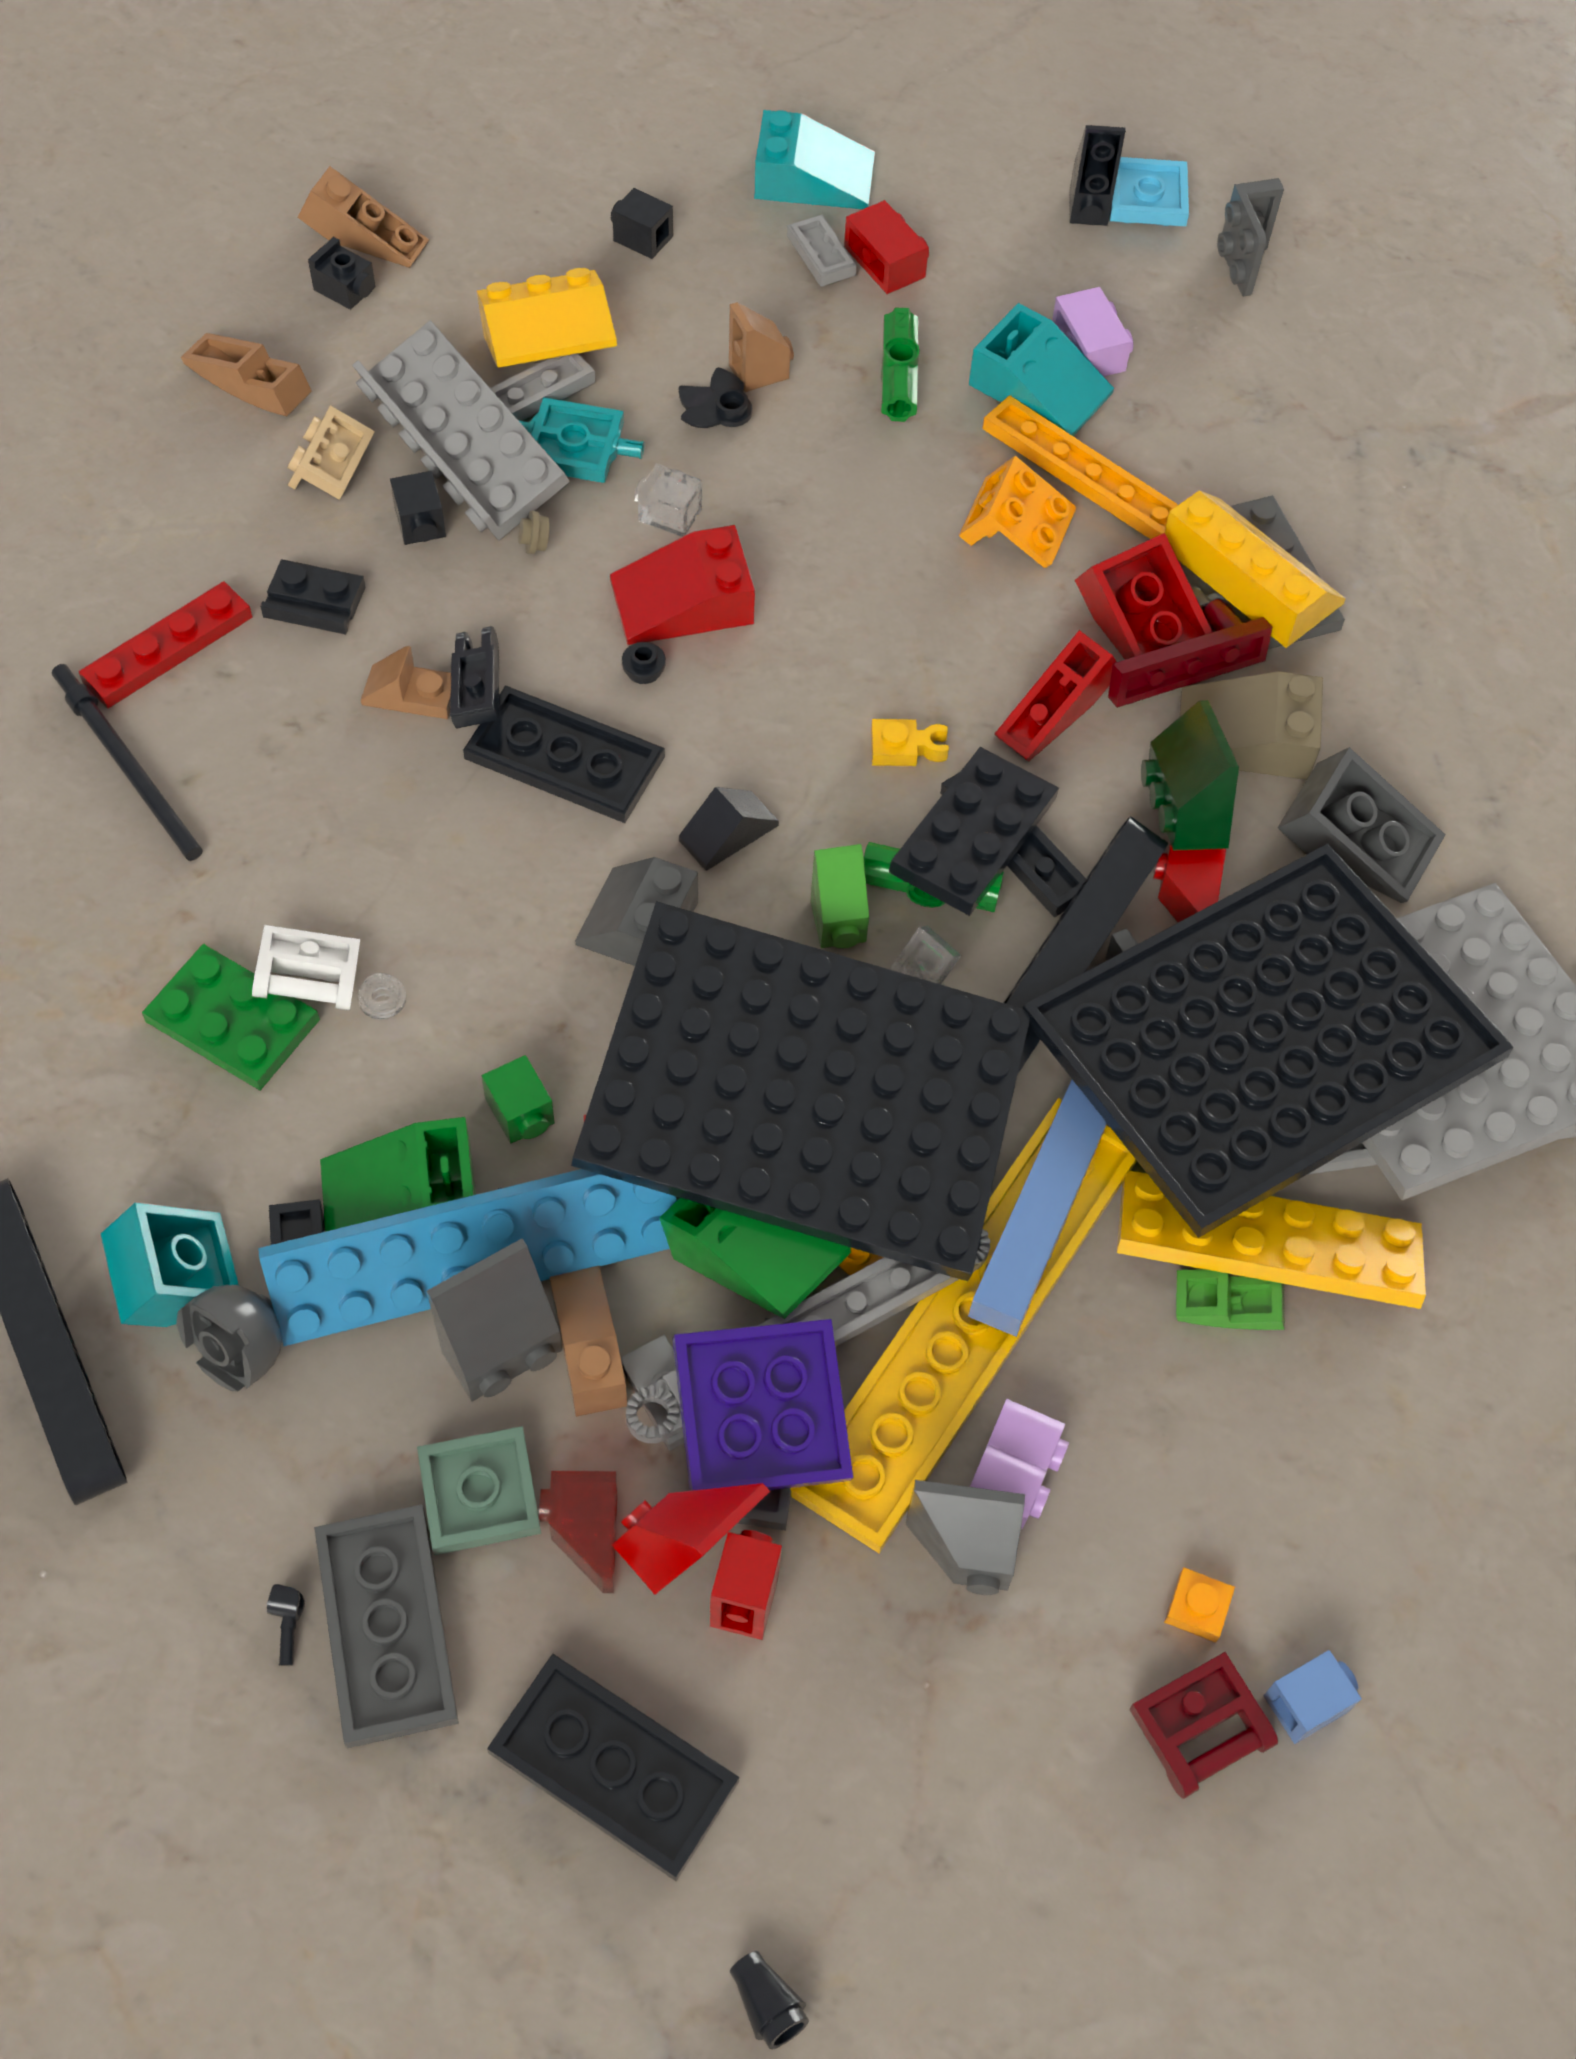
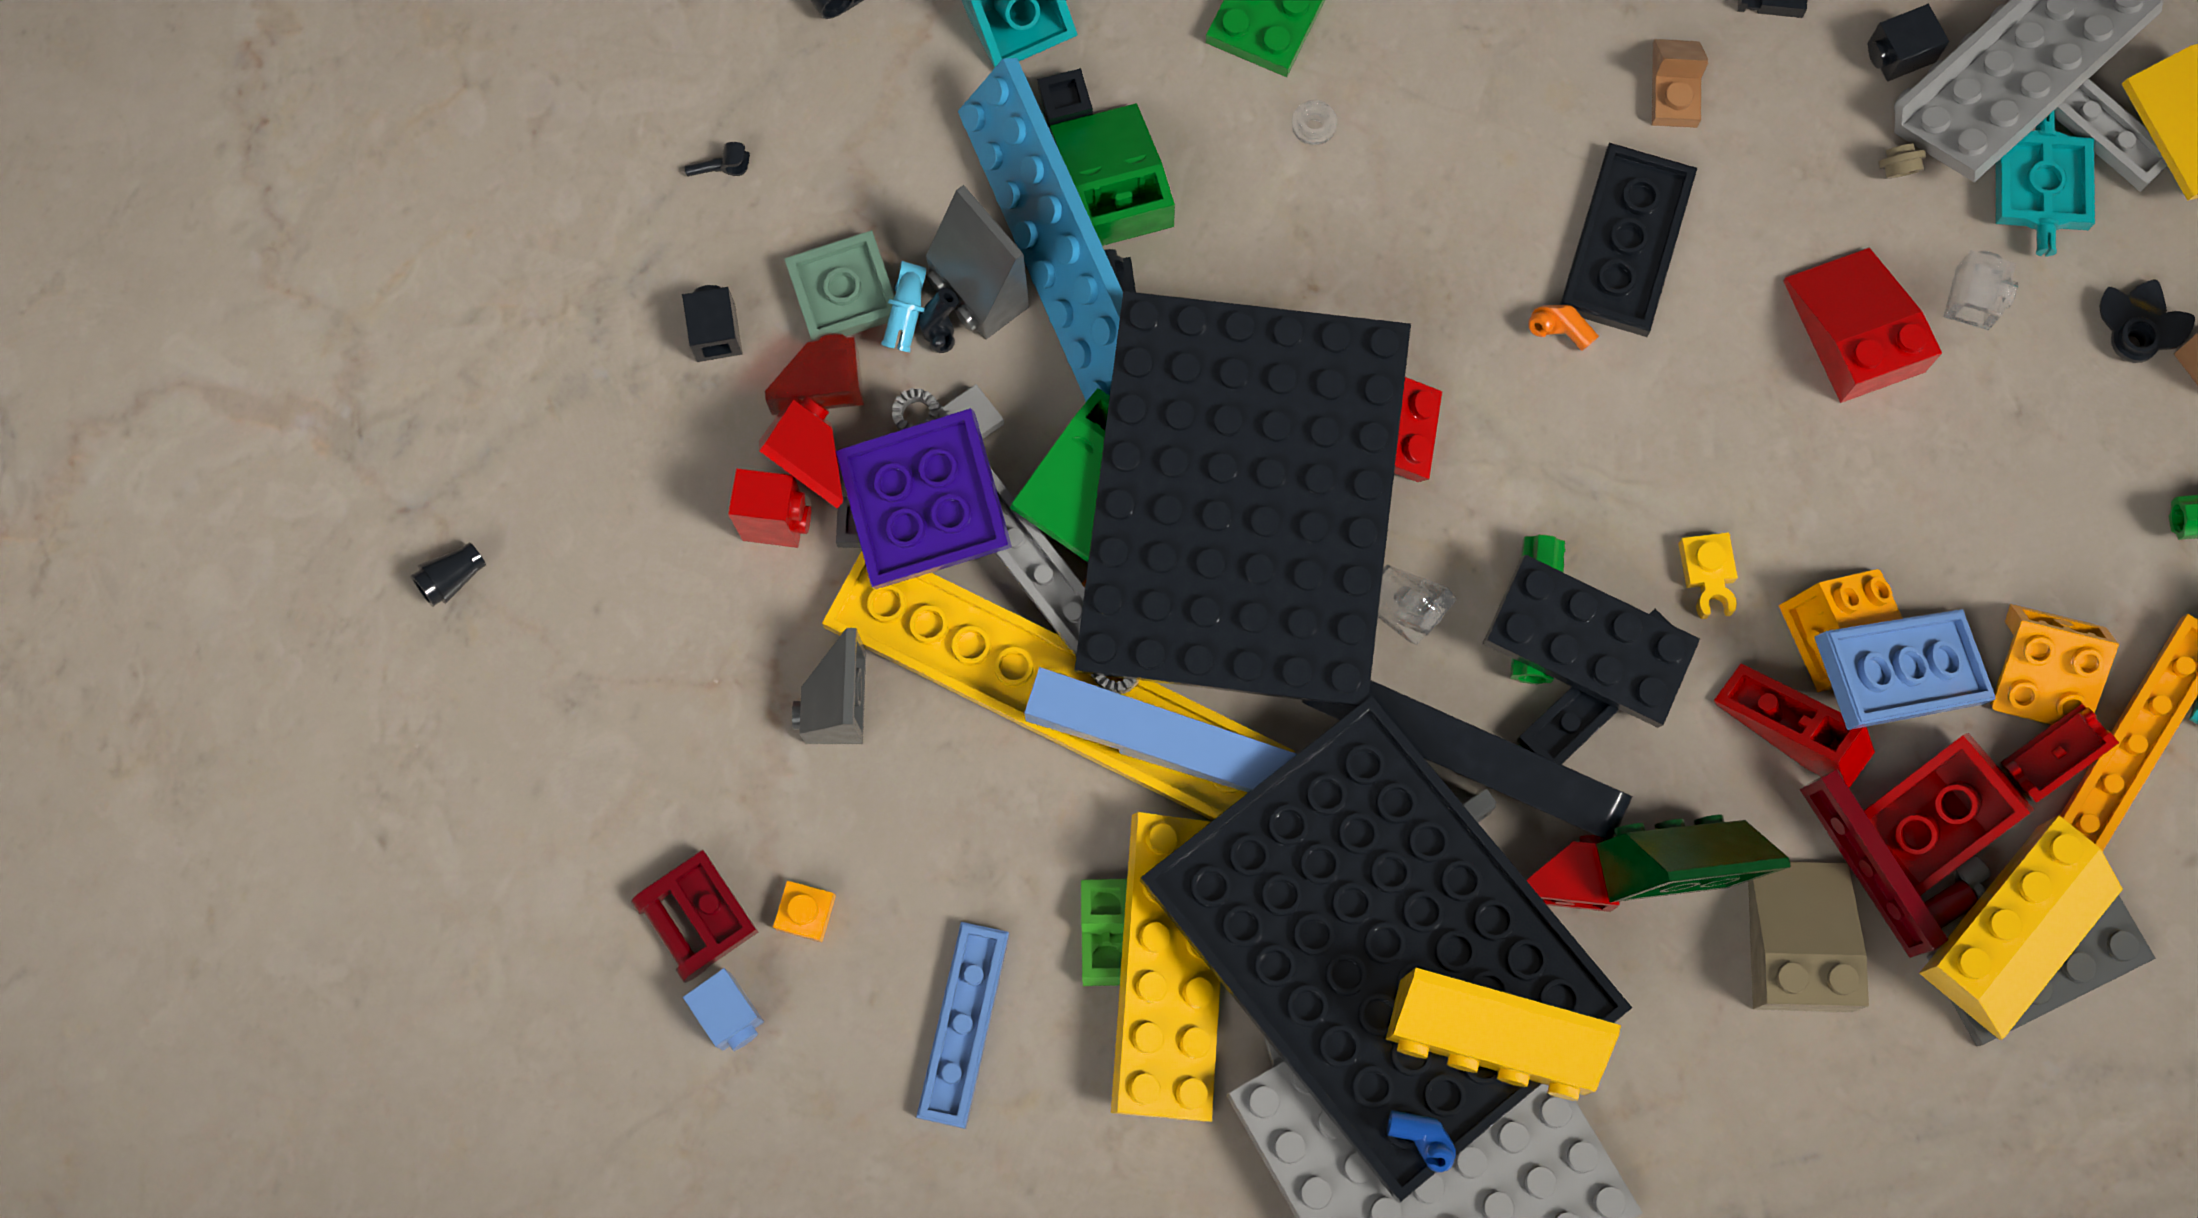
camera: 90 degrees right, 15 degrees up
(233, 1333) = (955, 65): dark grey cylinder -> none
(309, 956) = (1340, 46): white plate -> none
(385, 1626) = (720, 235): dark grey plate -> none
(475, 680) = (1695, 135): black hinge -> none
(495, 1642) = (712, 323): none -> black brick
(518, 1100) = (1218, 257): green brick -> none
(521, 1414) = (905, 306): none -> medium azure piece
(538, 1390) = (936, 322): none -> black arm
(589, 1341) = (990, 354): medium nougat slope -> none
(614, 1766) = (621, 431): black plate -> none
(627, 902) = (1447, 336): dark grey slope -> none
(640, 815) = (1562, 320): none -> orange arm
(643, 671) = (1755, 308): black plate -> none
(725, 825) = (1568, 406): black slope -> none
(840, 896) = (1483, 517): bright green slope -> none
(975, 649) = (1836, 605): none -> light orange bracket
(1020, 1454) = (912, 736): lavender brick -> none
(1023, 603) = (1904, 668): none -> medium blue tile
(1101, 515) = (2059, 752): none -> red hinge
(1324, 1451) = (963, 1025): none -> medium blue tile
(1364, 823) = (1686, 1063): dark grey slope -> none
(1366, 934) = (1501, 1033): none -> yellow slope
(1457, 1011) = (1428, 1137): none -> blue arm

